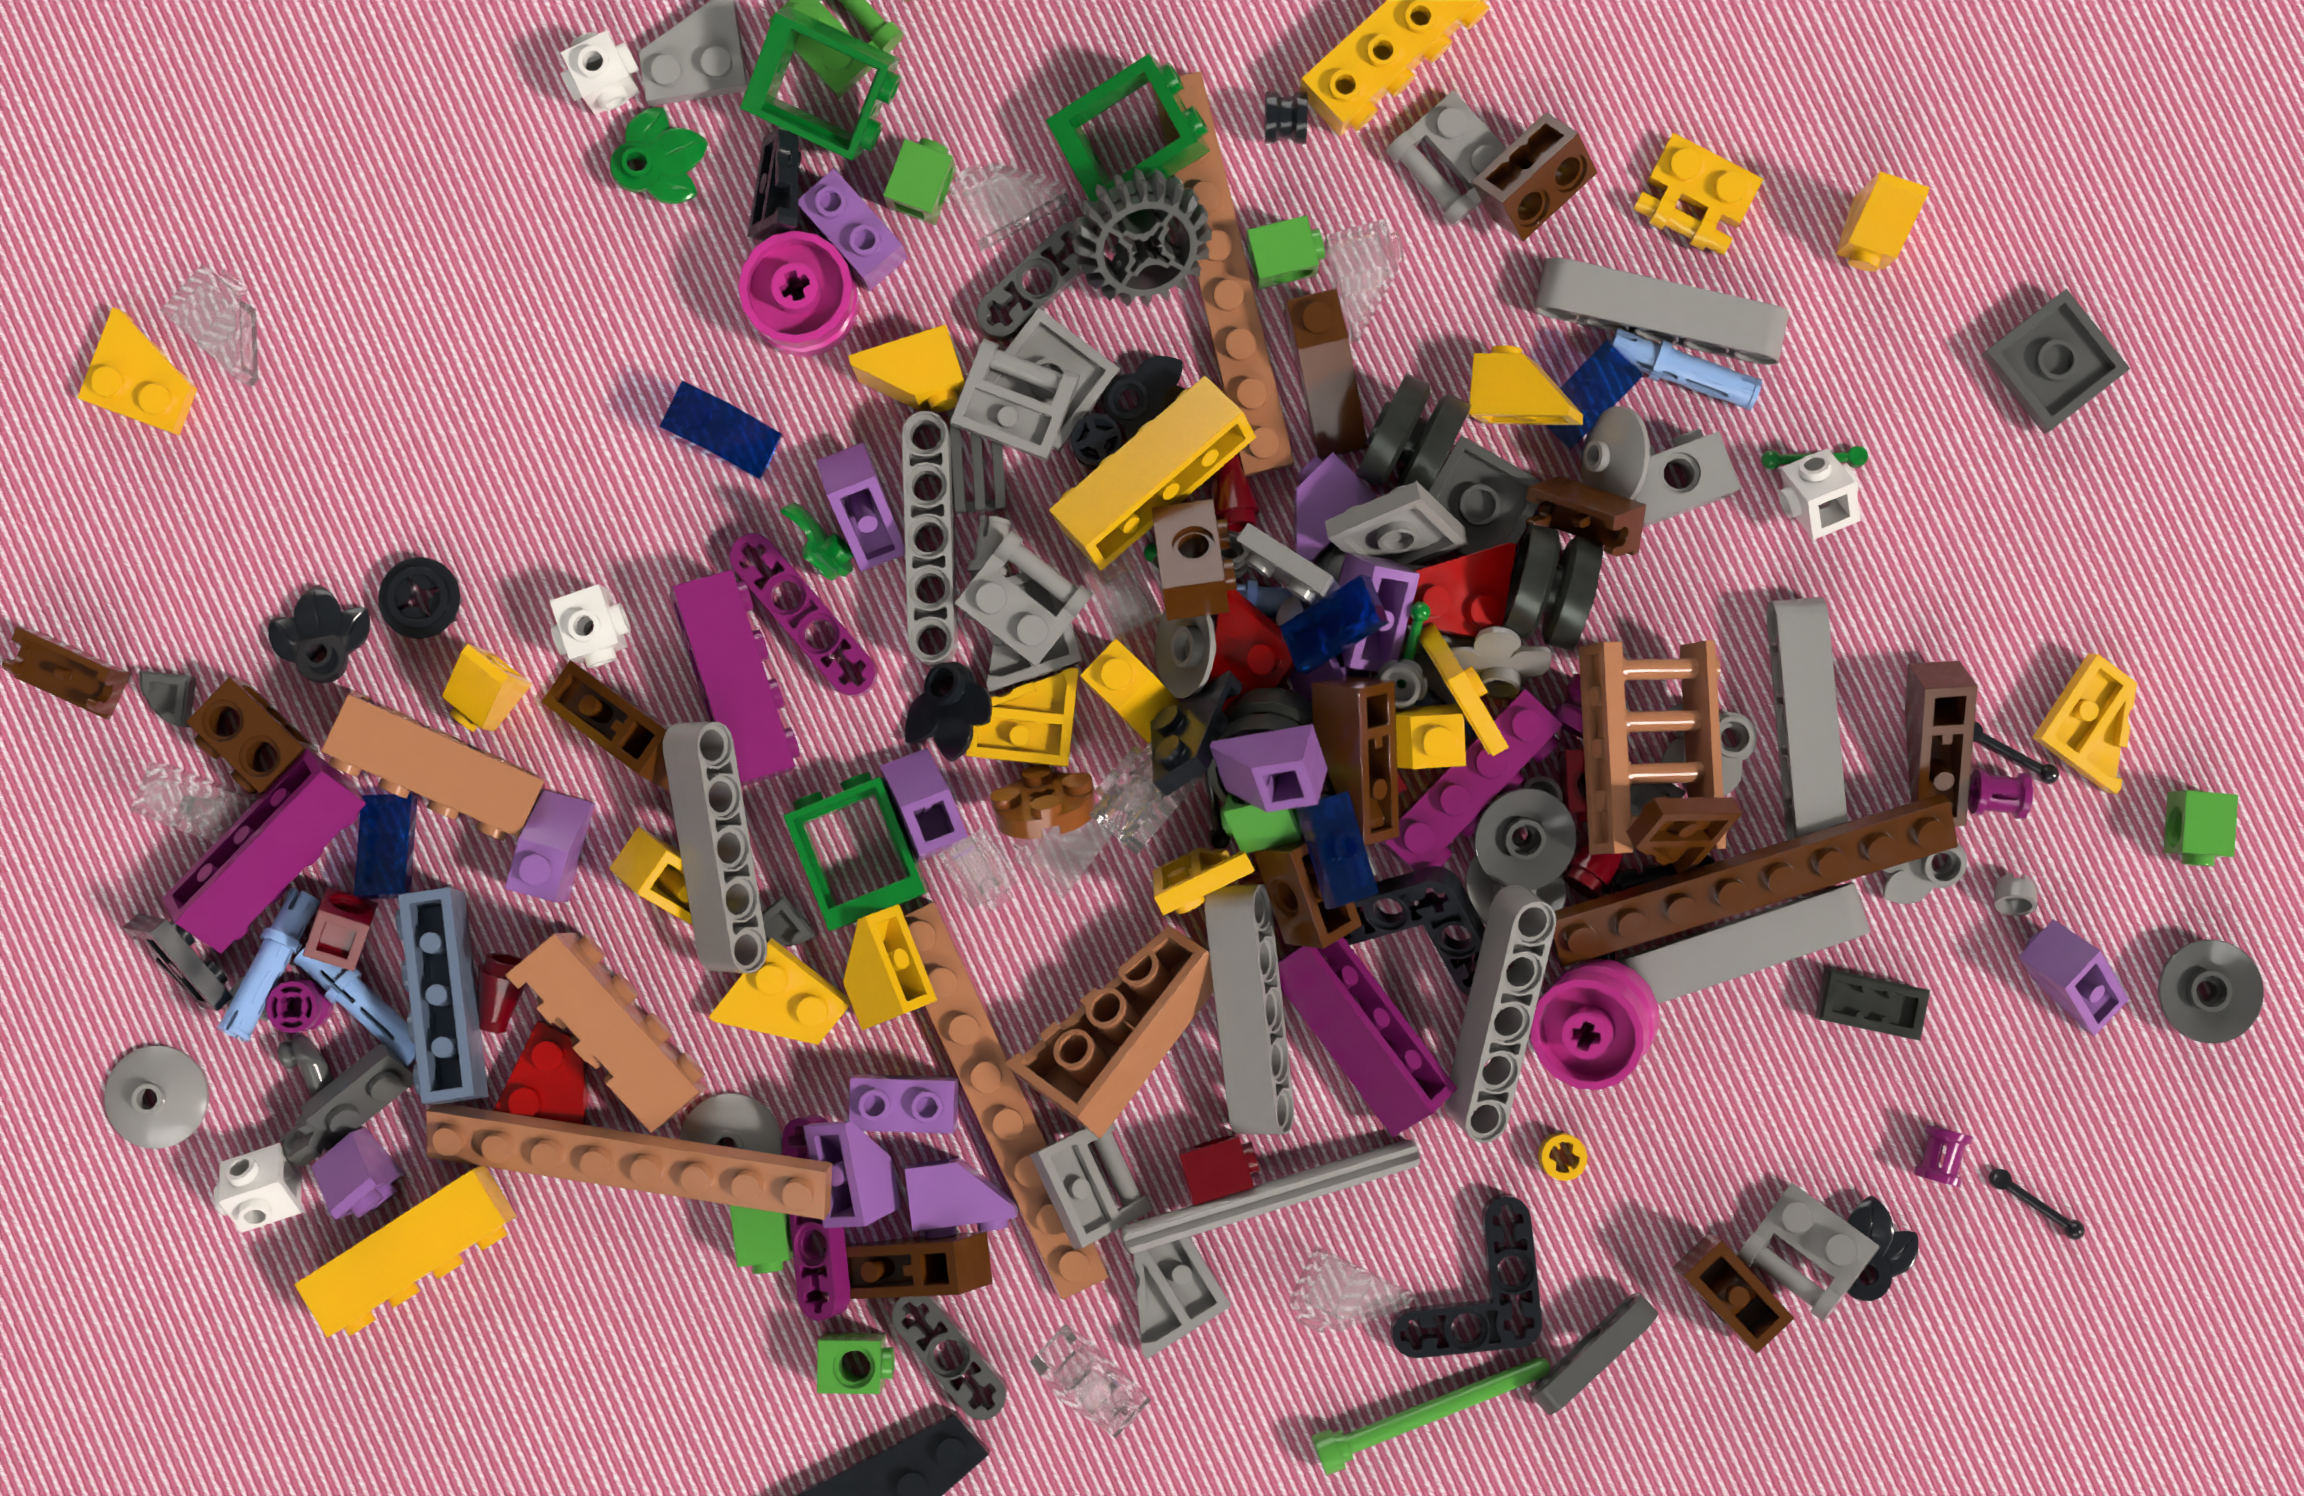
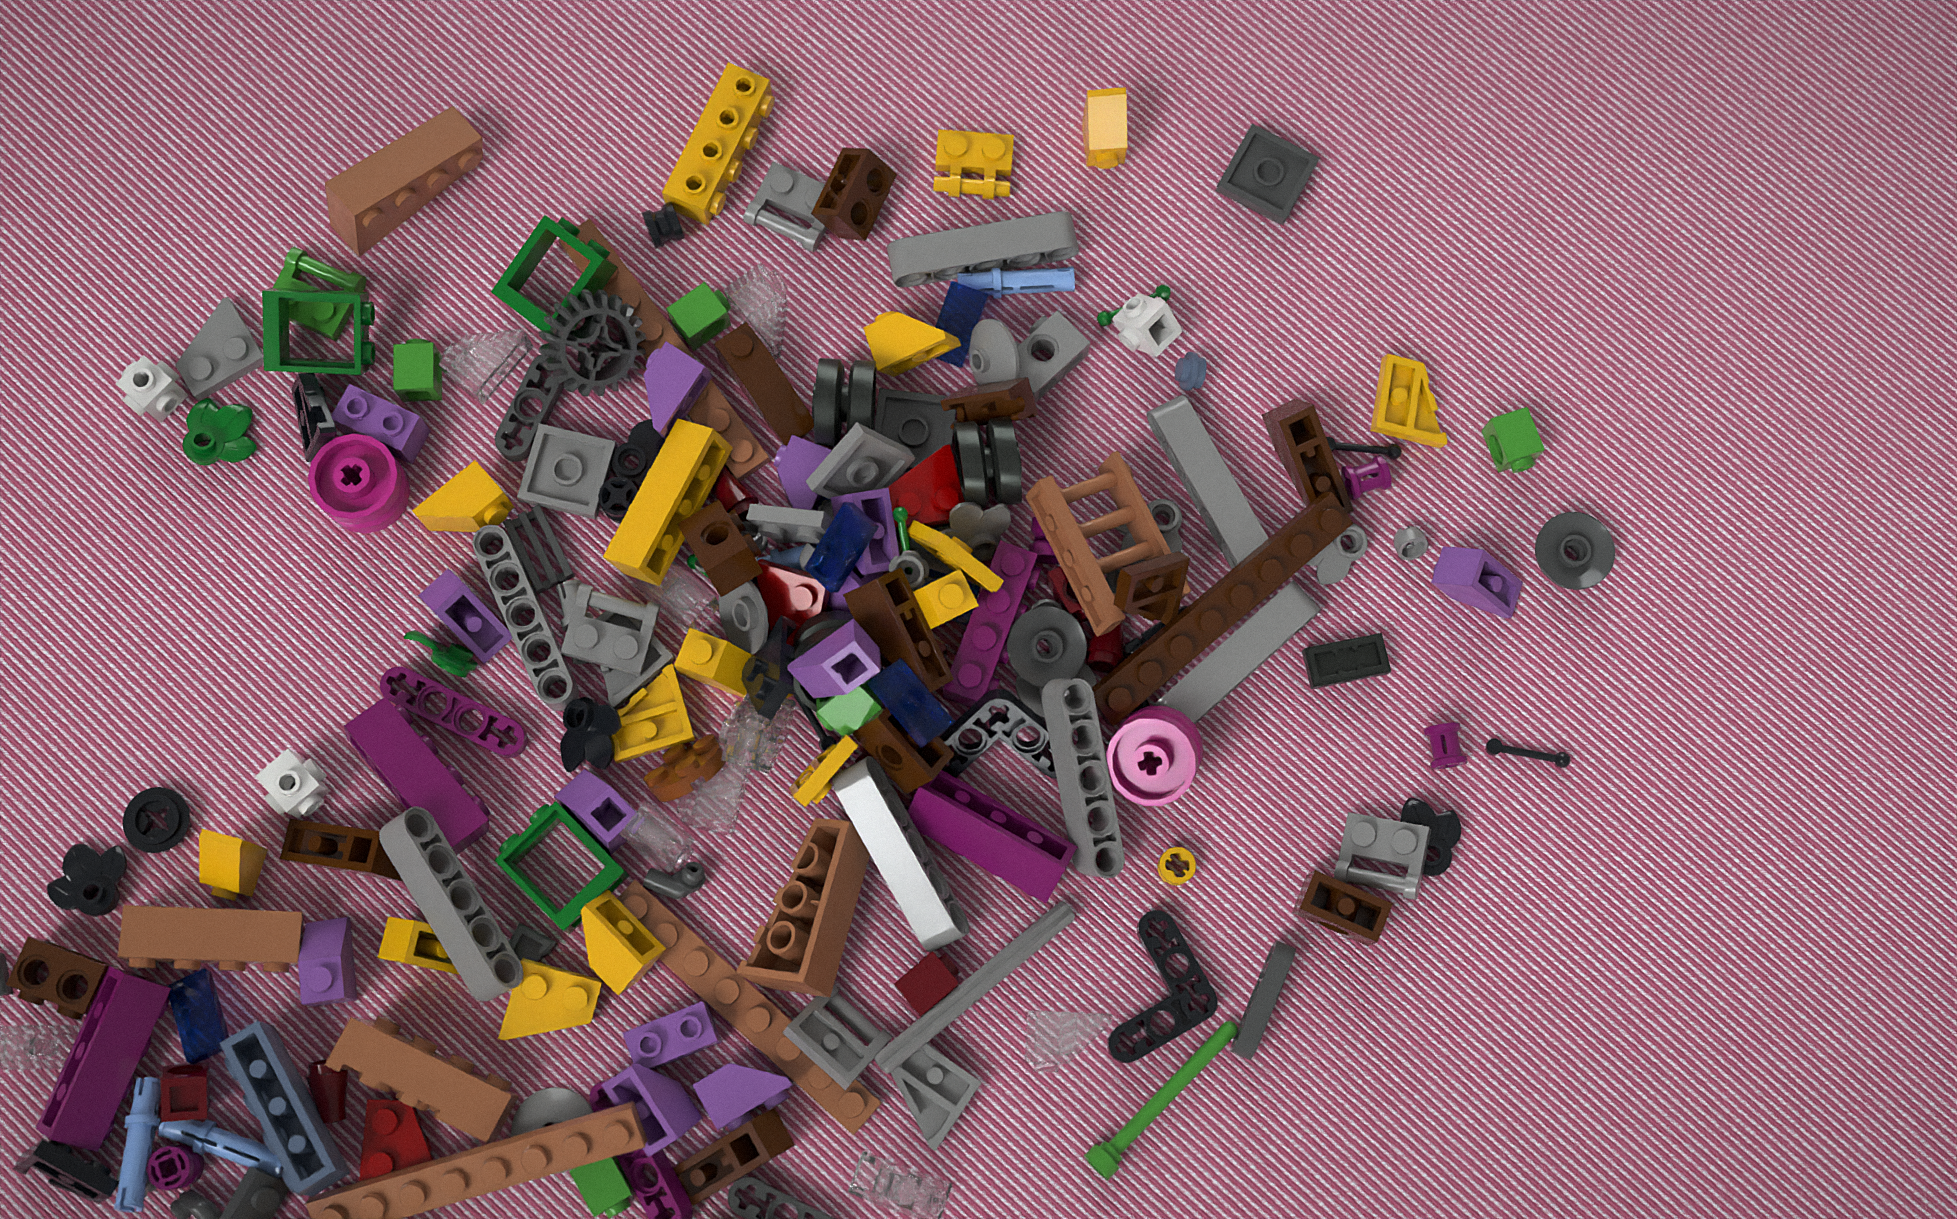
camera: 30 degrees left, 10 degrees down
(720, 430) = (338, 604): clear blue slope -> none
(982, 928) = (676, 885): none -> dark grey arm
(1008, 415) = (547, 504): light grey plate -> none
(1215, 332) = (673, 385): none -> medium lavender slope
(1847, 572) = (1190, 371): none -> sand blue plate

